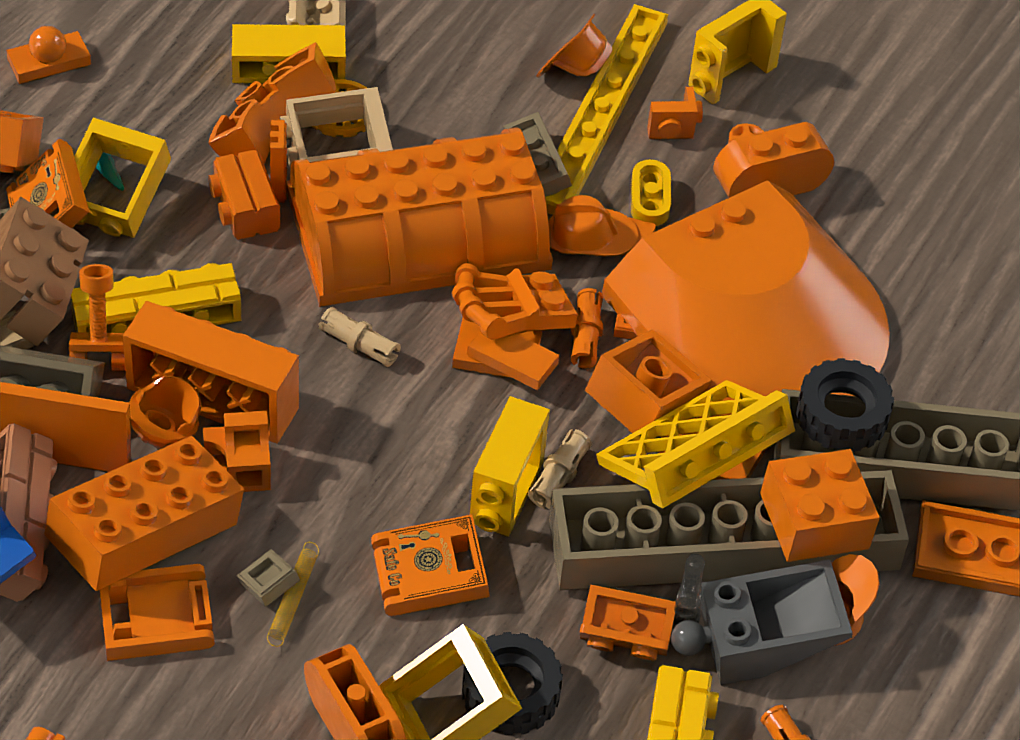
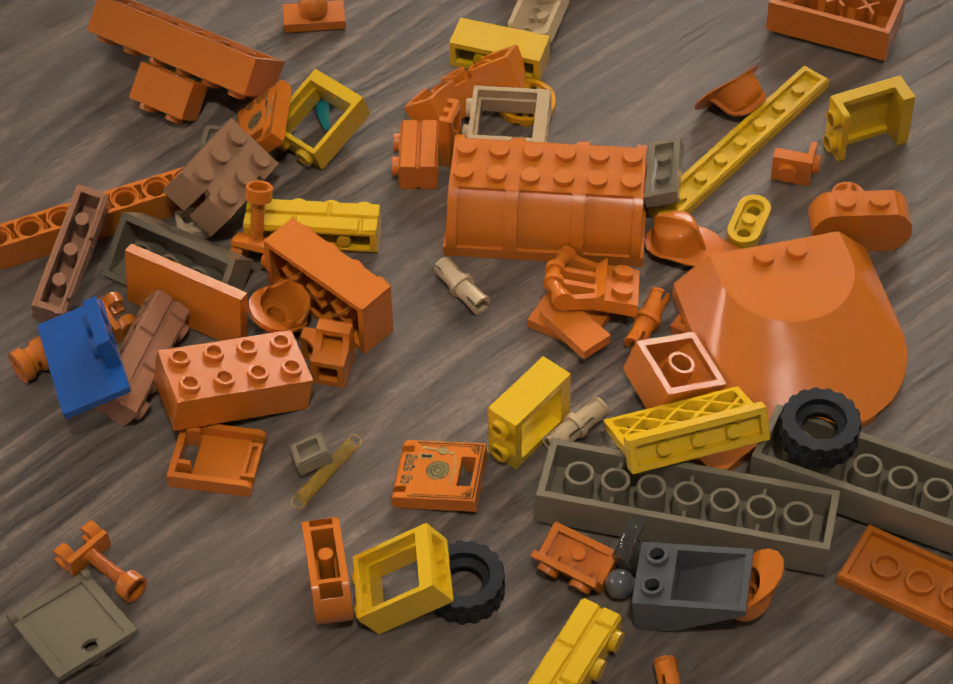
camera: 25 degrees right, 0 degrees up
(819, 505) = (759, 502): orange brick -> none

